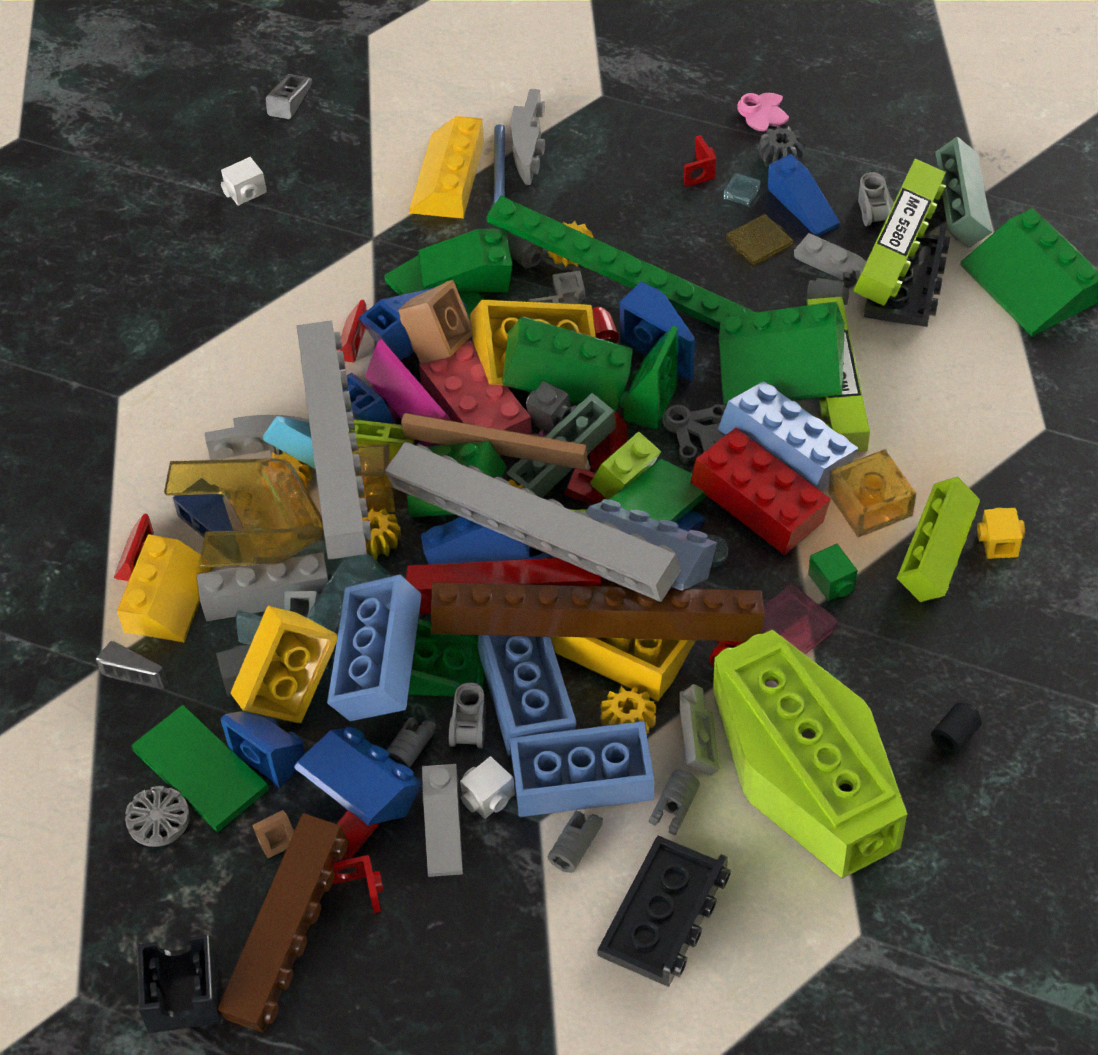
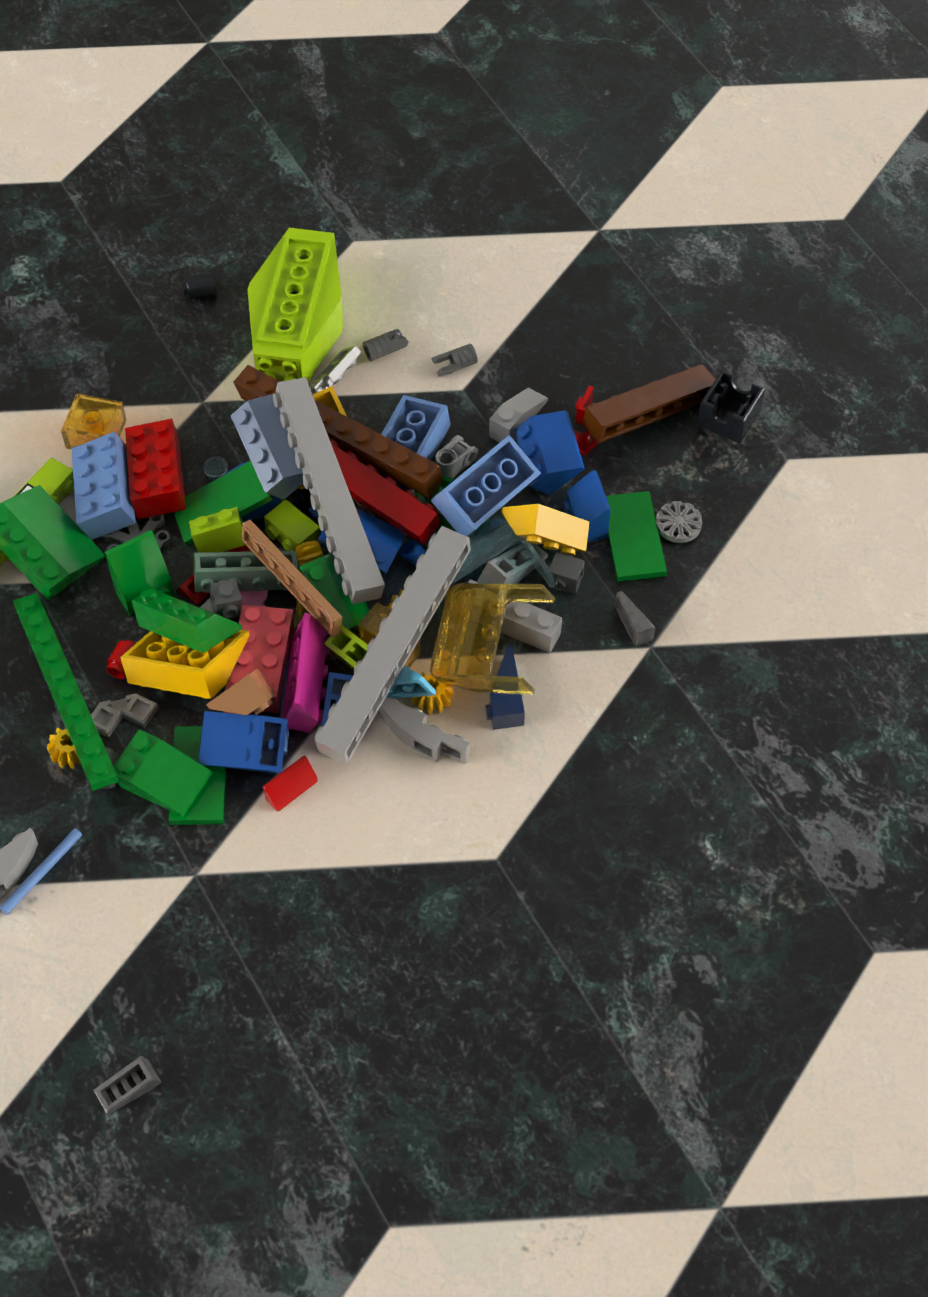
camera: 145 degrees left, 5 degrees up
(133, 548) = (574, 709): red slope -> none
(162, 590) = (576, 662): yellow slope -> none
(243, 181) = (248, 998): white brick -> none
(274, 833) = (618, 463): medium nougat tile -> none
(449, 168) = (83, 889): yellow slope -> none
(487, 788) = (477, 412): white brick -> none
(582, 769) = (414, 374): medium blue brick -> none
(628, 708) = (363, 402): yellow gear -> none
(646, 319) = (91, 619): blue slope -> none
(664, 911) = (440, 297): black bracket -> none
(798, 619) = (216, 397): clear pink tile -> none
(832, 572) = (167, 402): green brick -> none
(939, 539) = (90, 376): lime brick -> none
(1001, 532) = (50, 363): yellow brick -> none

